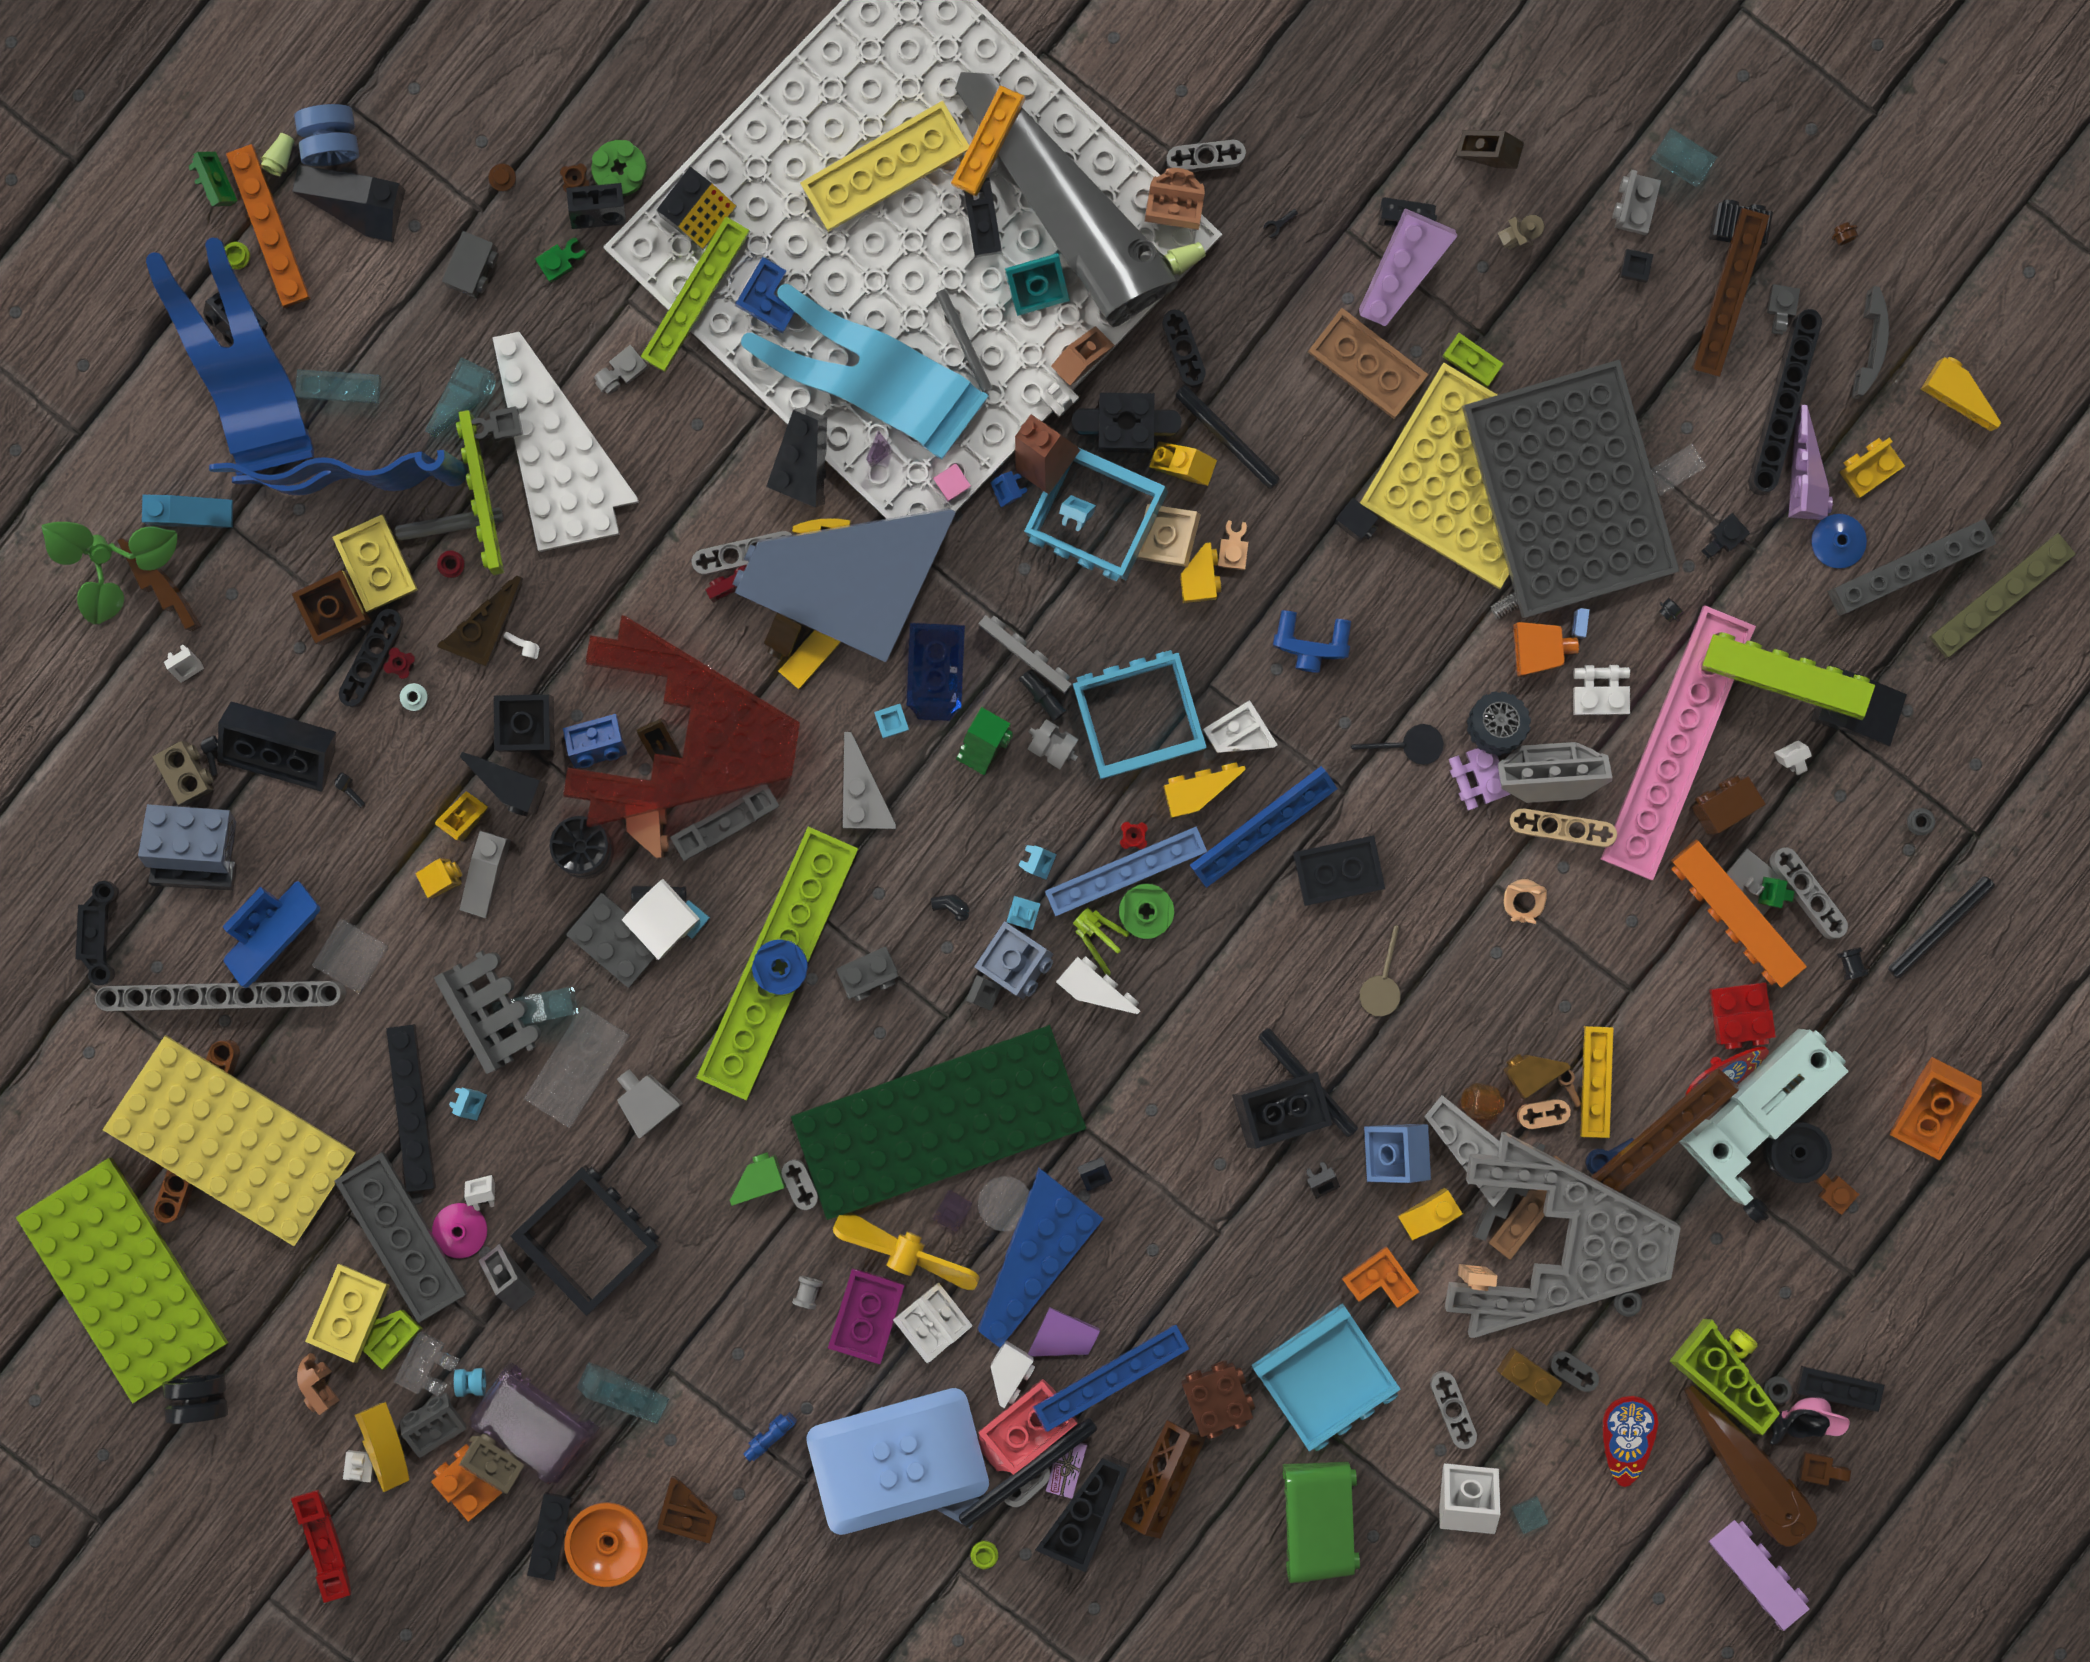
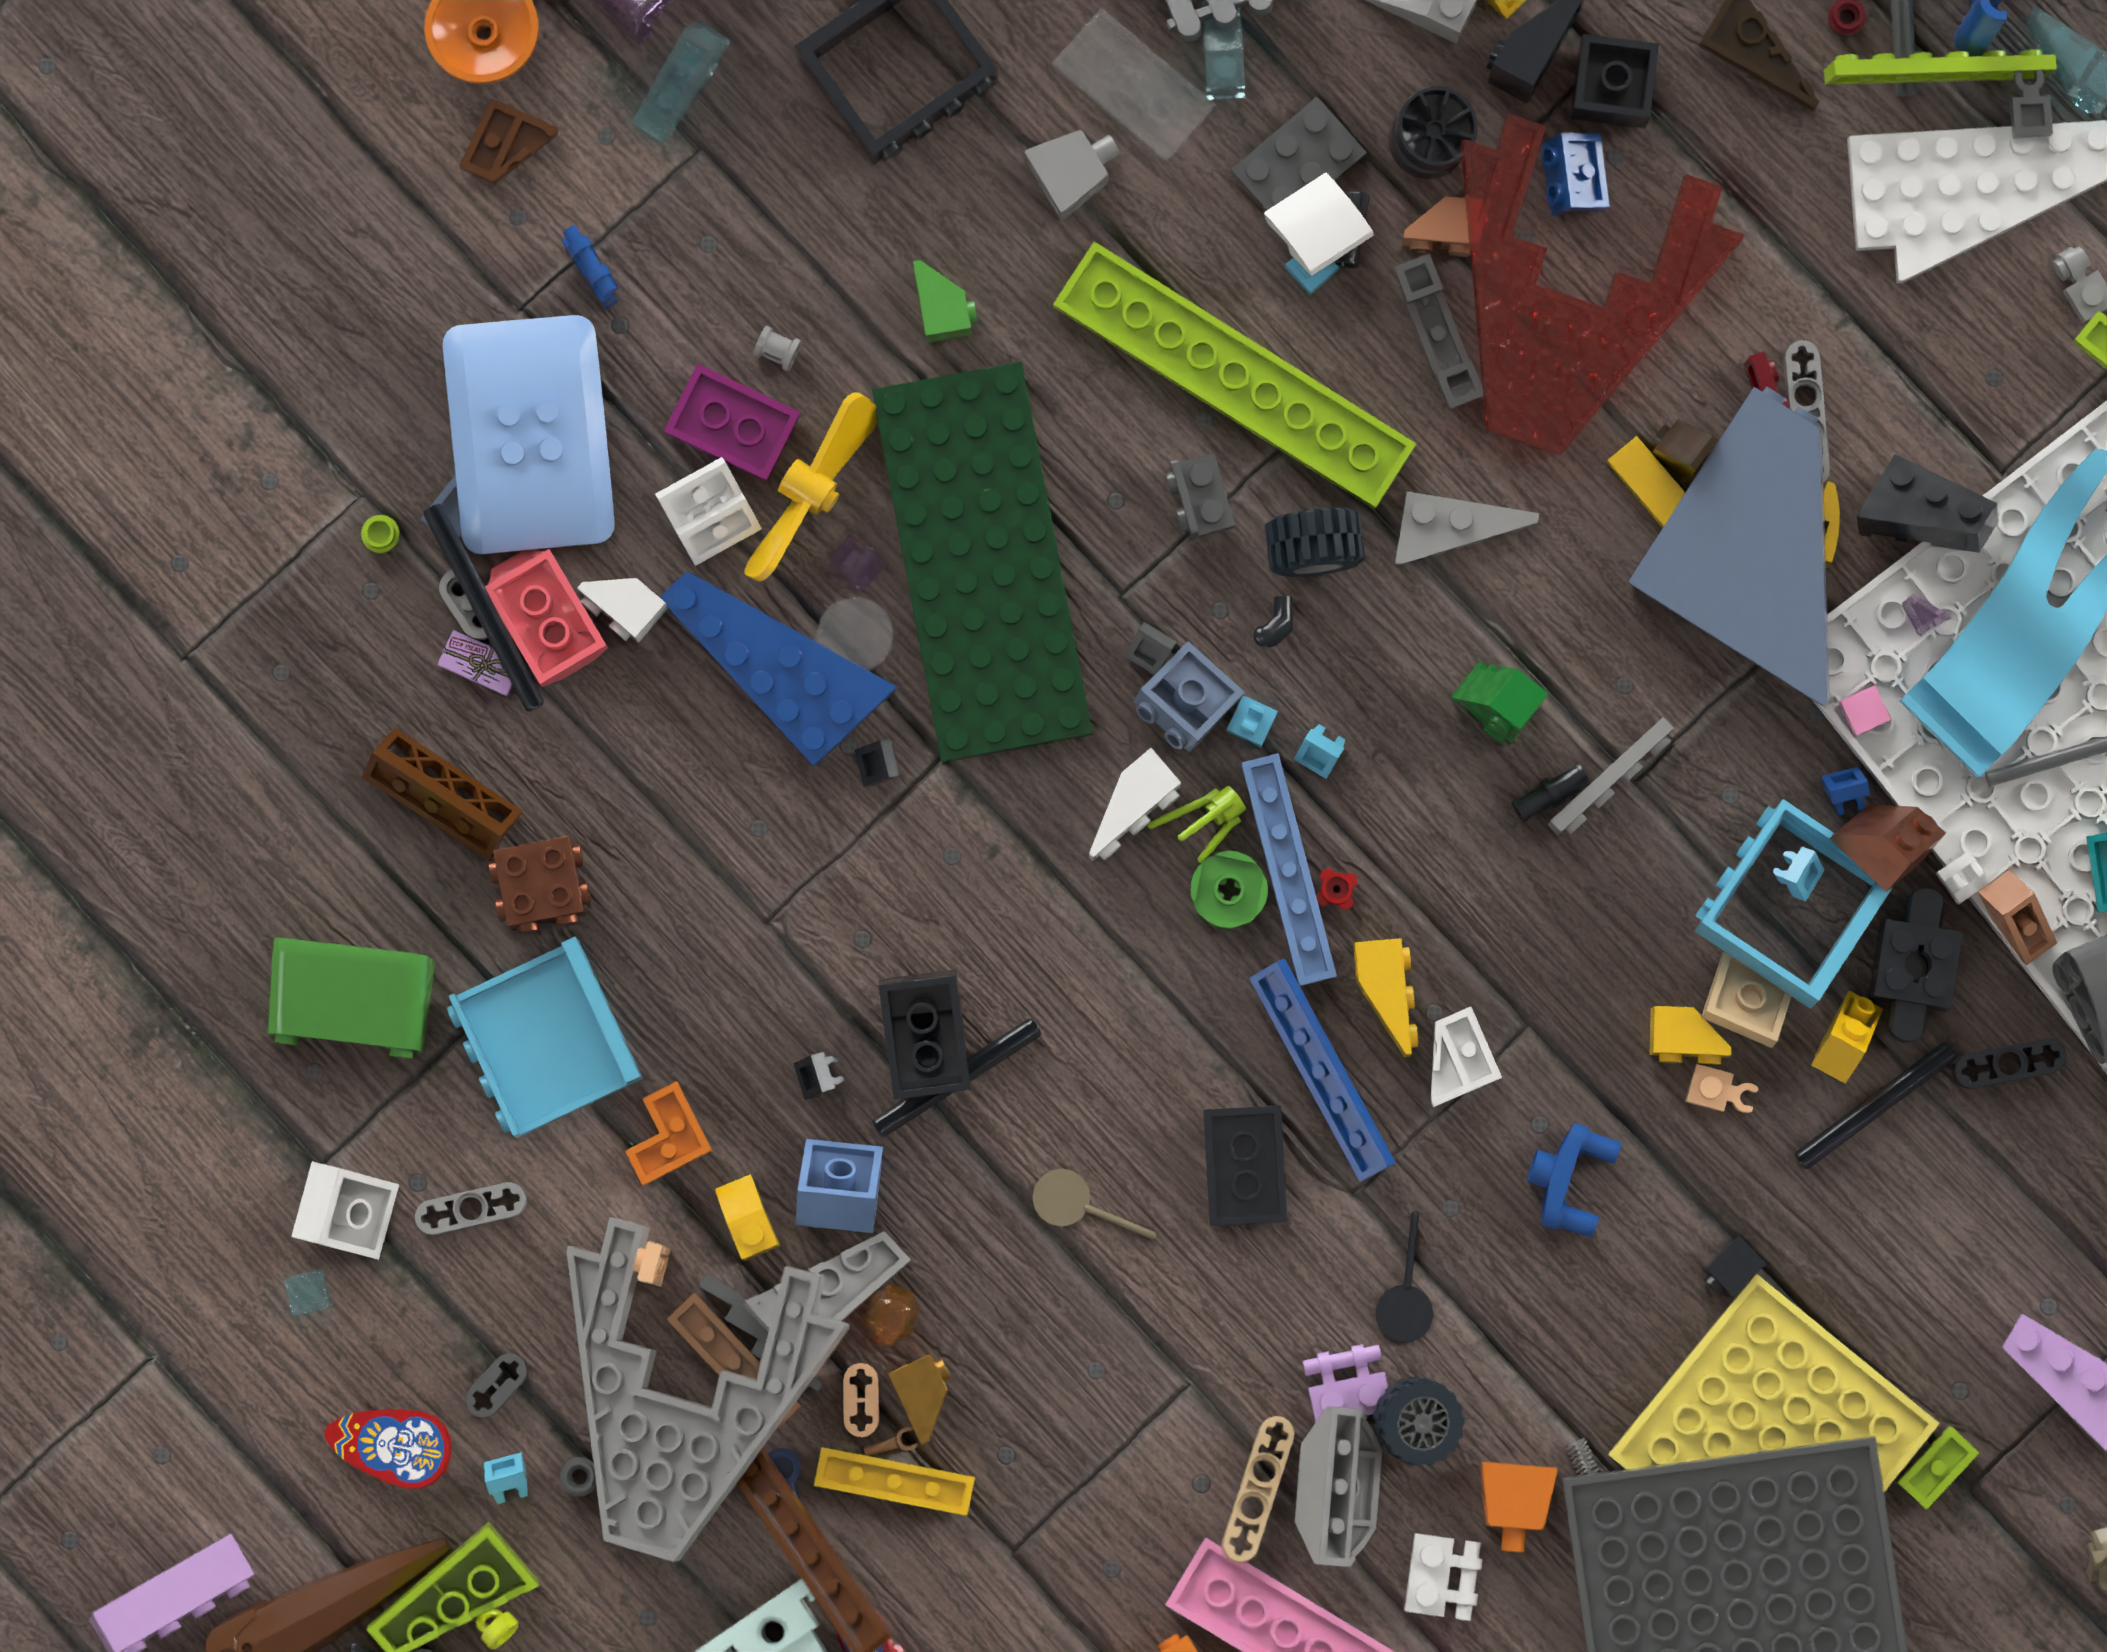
camera: 100 degrees right, 5 degrees down
(529, 648) = (1715, 105): white hand -> none
(658, 739) = (1566, 259): dark brown slope -> none
(774, 981) = (1241, 357): blue plate -> none
(793, 1187) = (922, 352): light grey beam -> none
(891, 721) = (1545, 578): medium azure tile -> none
(892, 888) = (1314, 542): none -> black wheel
(935, 670) = (1607, 649): clear blue slope -> none
(1053, 744) = (1480, 795): light grey wheel -> none
(1063, 1336) = (661, 686): medium lavender slope -> none
(1082, 1523) = (409, 677): black wedge -> none
(1110, 1378) = (594, 739): blue plate -> none
(1115, 674) = (1565, 896): medium azure window -> none
(1367, 363) = (1952, 1318): medium nougat plate -> none
(1525, 885) = (1184, 1421): light nougat piece -> none
(1529, 1376) = (500, 1319): pearl gold brick -> none
(1580, 623) = (1542, 1560): light blue tile -> none
(1635, 1354) = (504, 1475): none -> medium azure tile

